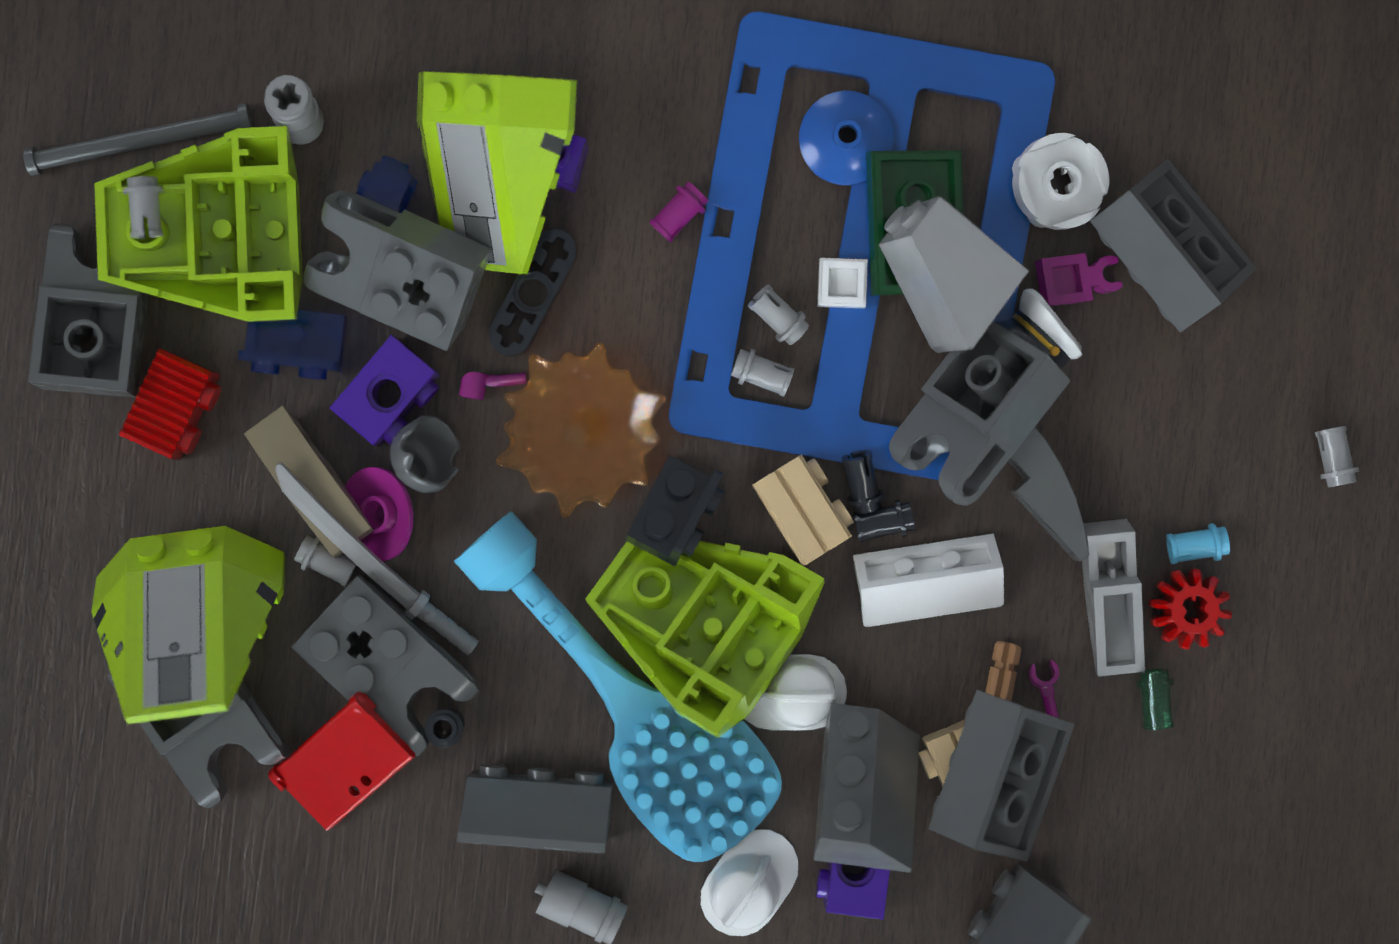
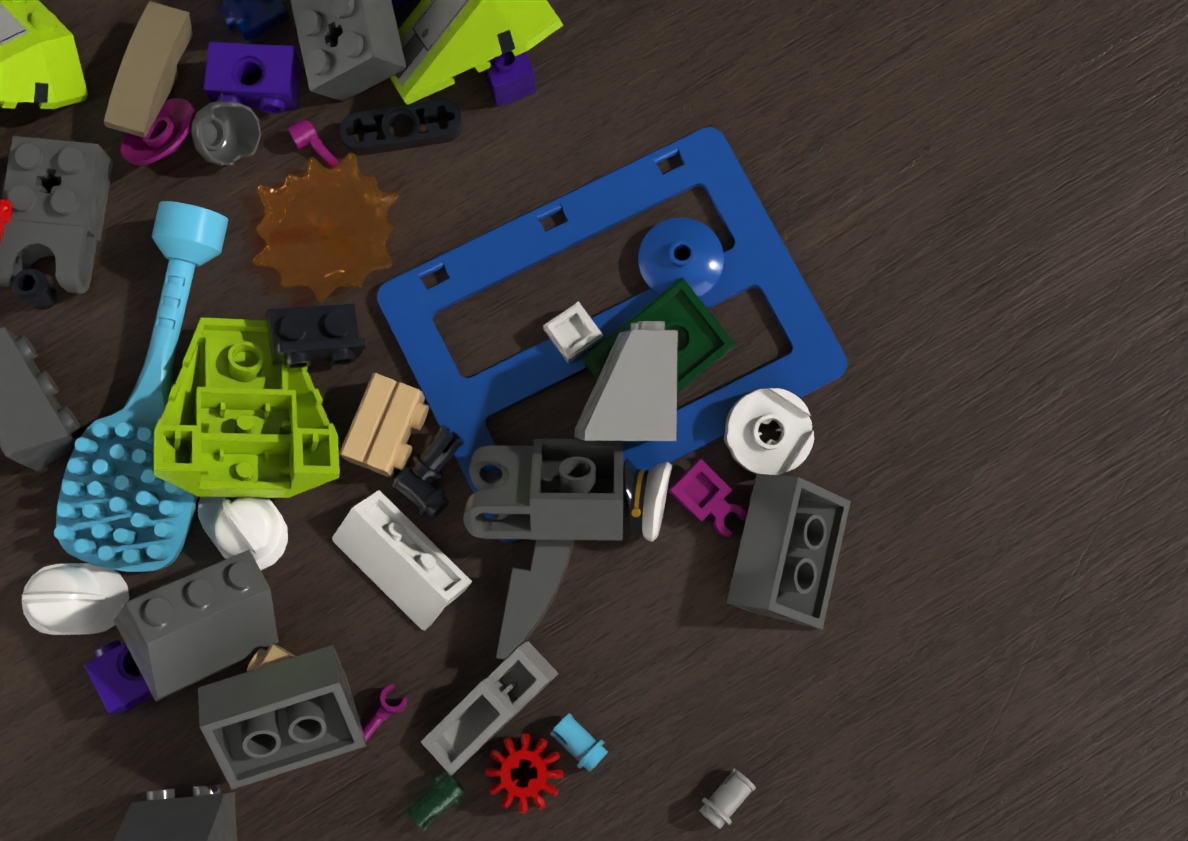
camera: 50 degrees right, 10 degrees down
(317, 557) = (95, 111): light grey pin -> none
(414, 601) = (113, 201): light grey sword -> none
(679, 211) = (536, 182): magenta pin -> none
(762, 372) = (463, 321): light grey pin -> none
(779, 315) = (514, 304): light grey pin -> none
(1001, 676) = (369, 669): medium nougat axle -> none

